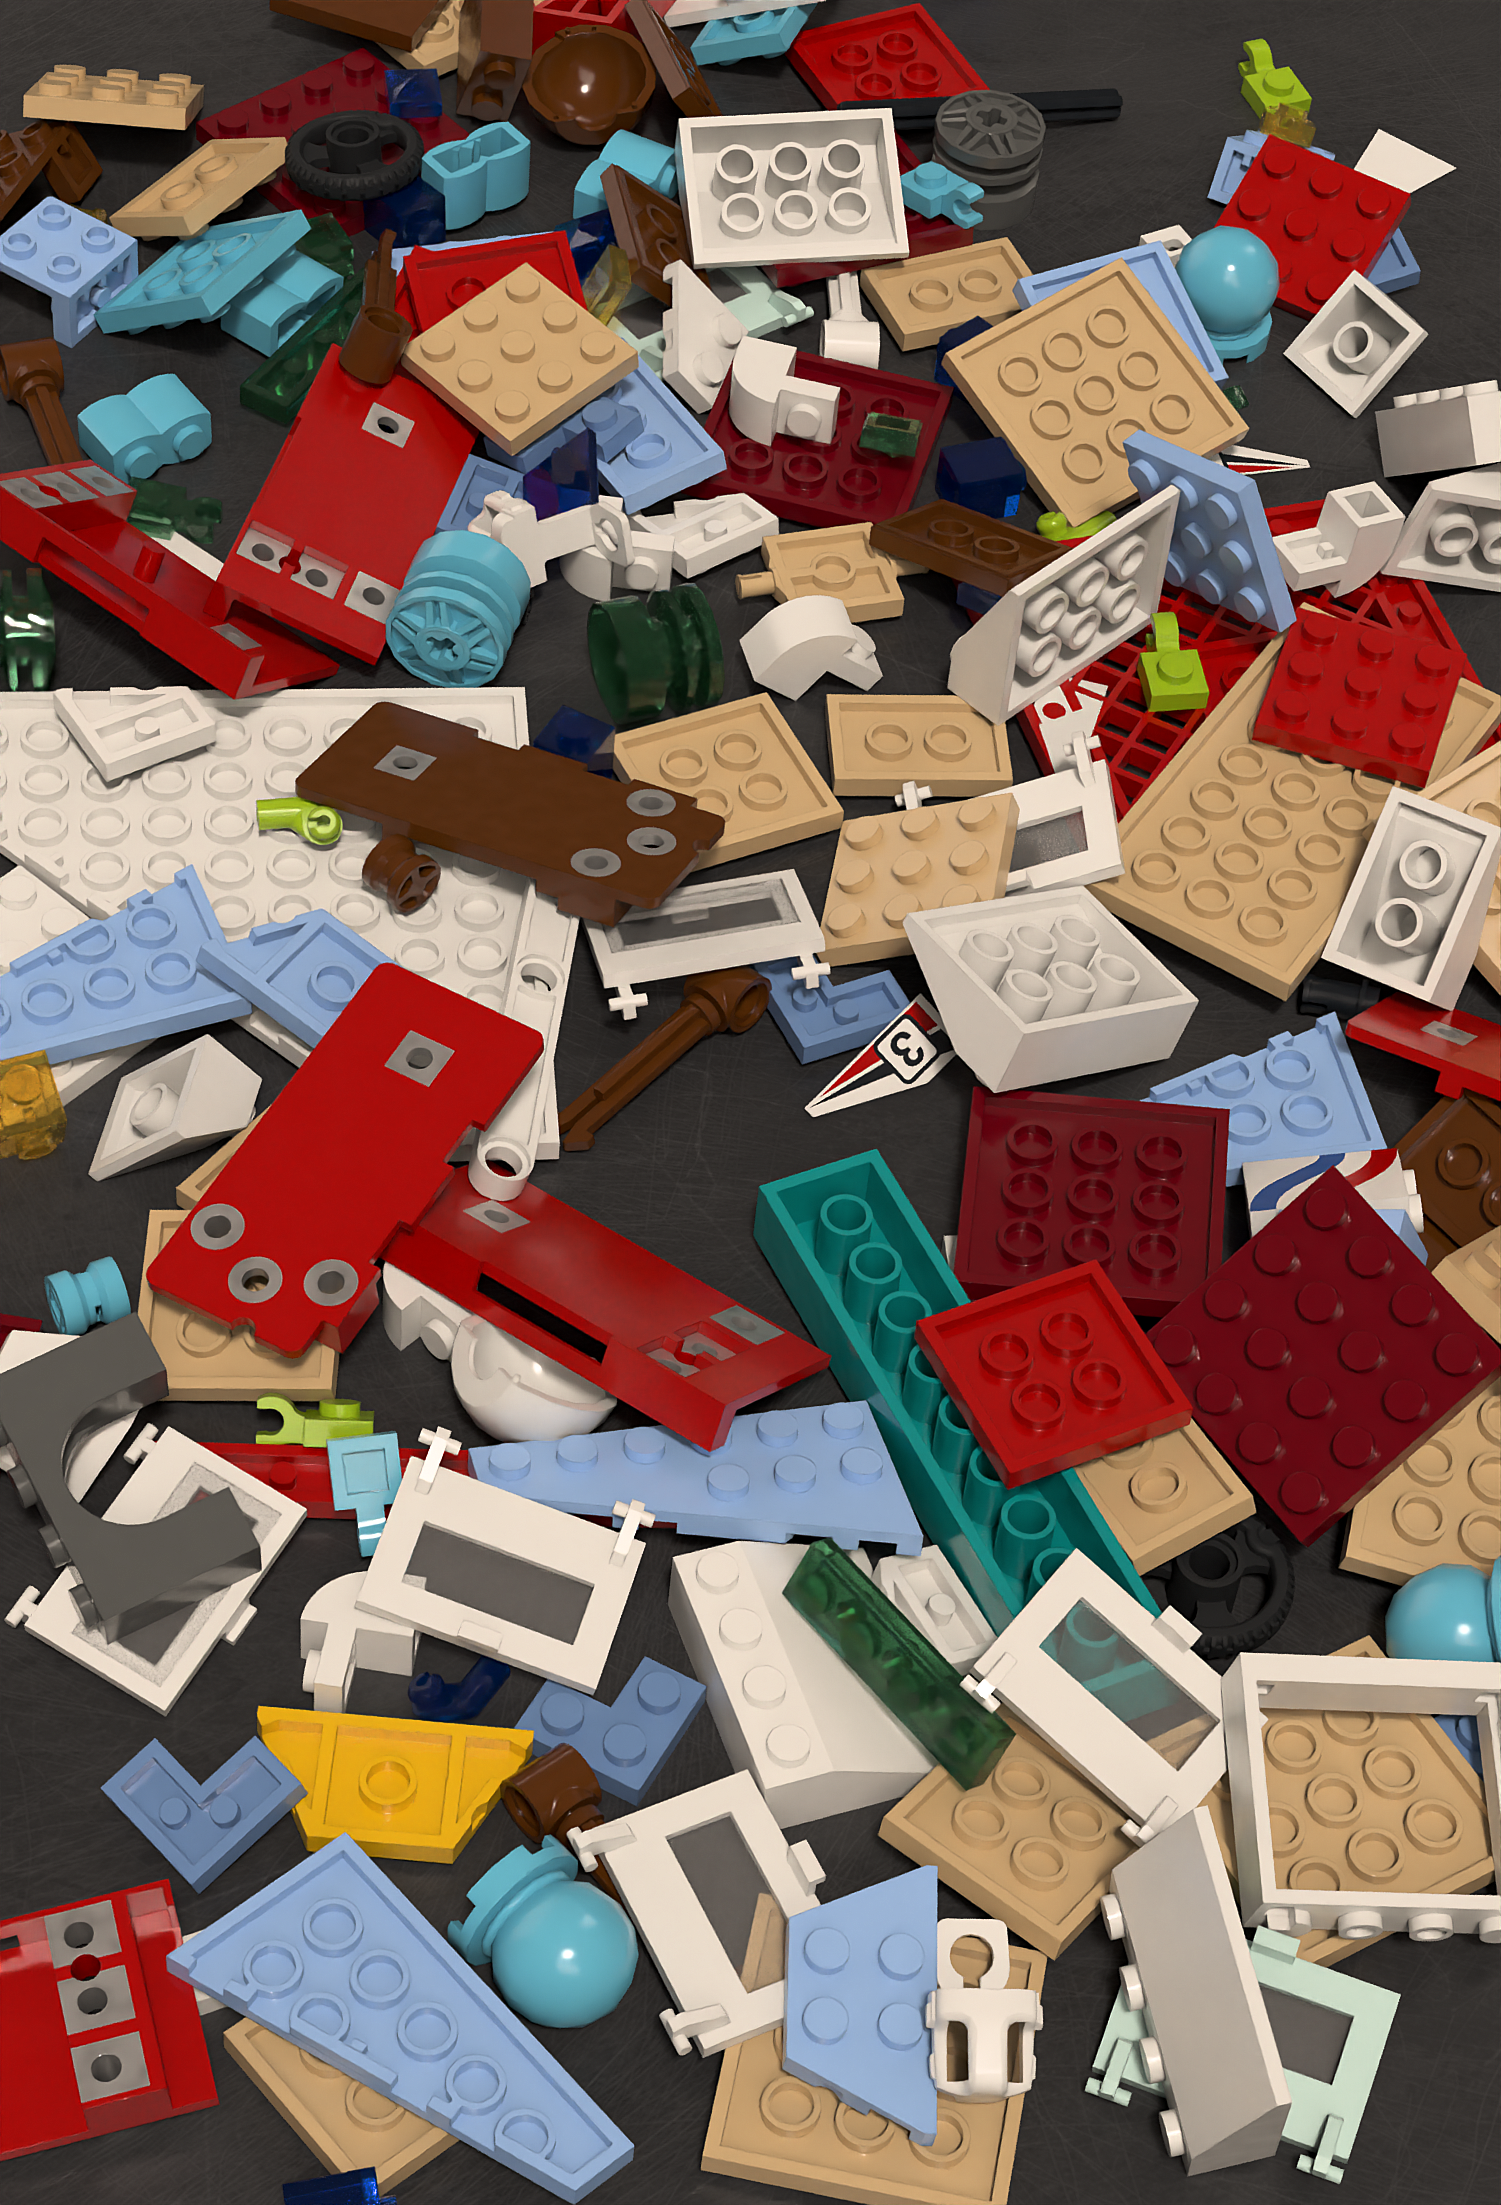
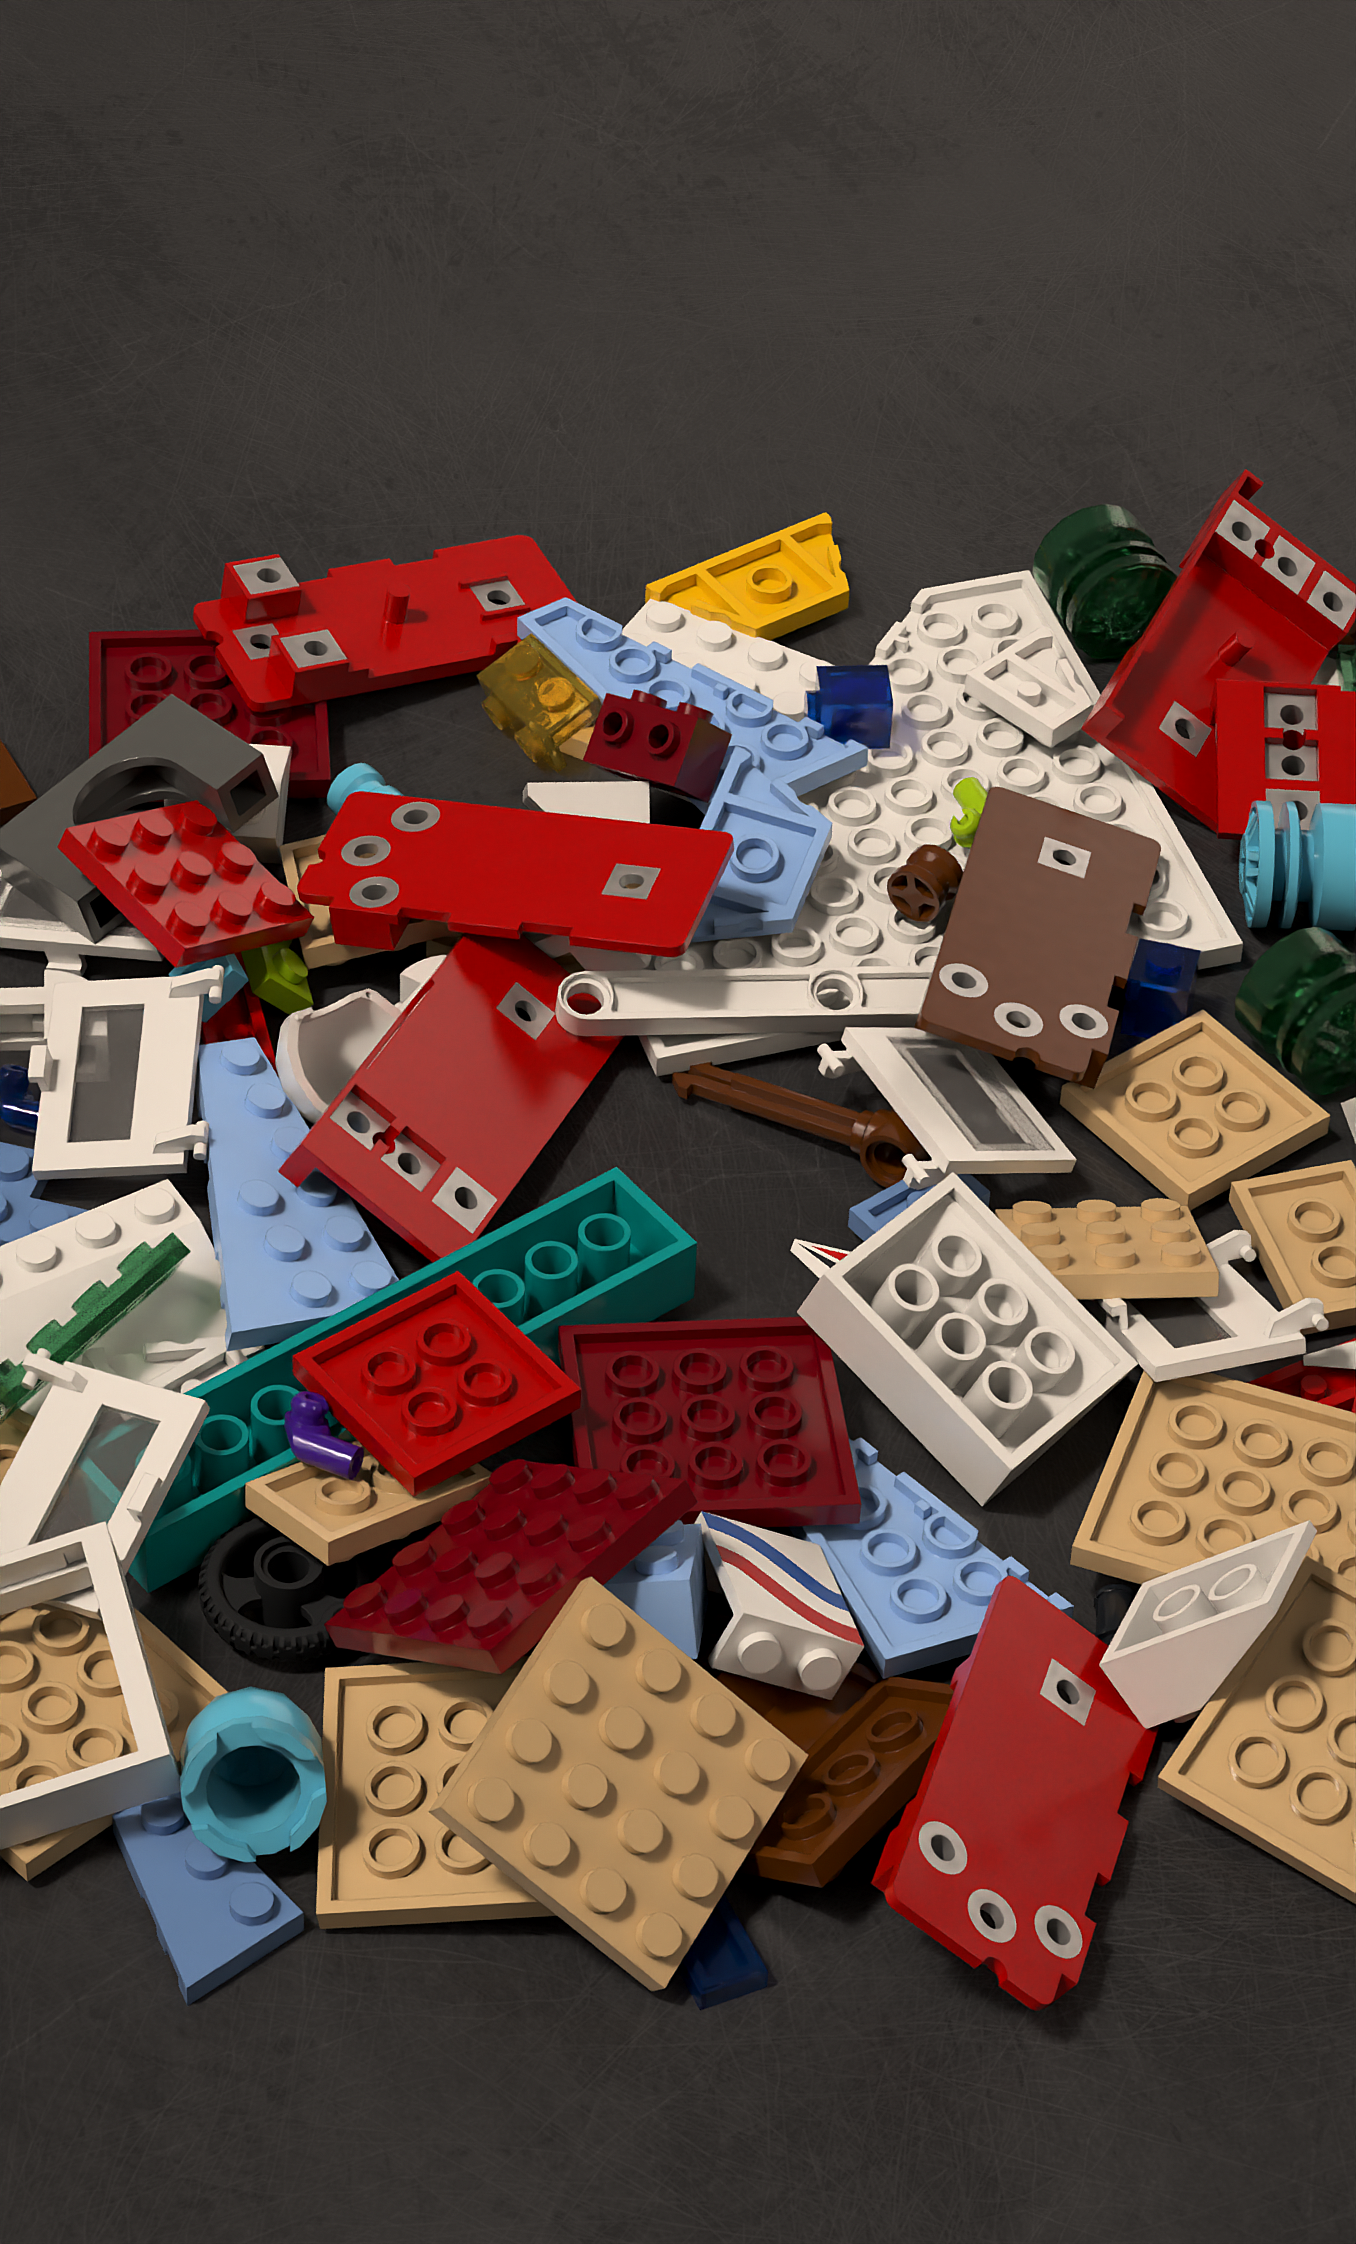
camera: 80 degrees right, 5 degrees down
(118, 860) = (852, 704): none -> clear blue brick
(162, 1011) = (658, 745): none -> dark red brick
(265, 1440) = (186, 882): none -> red plate
(1103, 1492) = (312, 1438): none -> dark purple arm

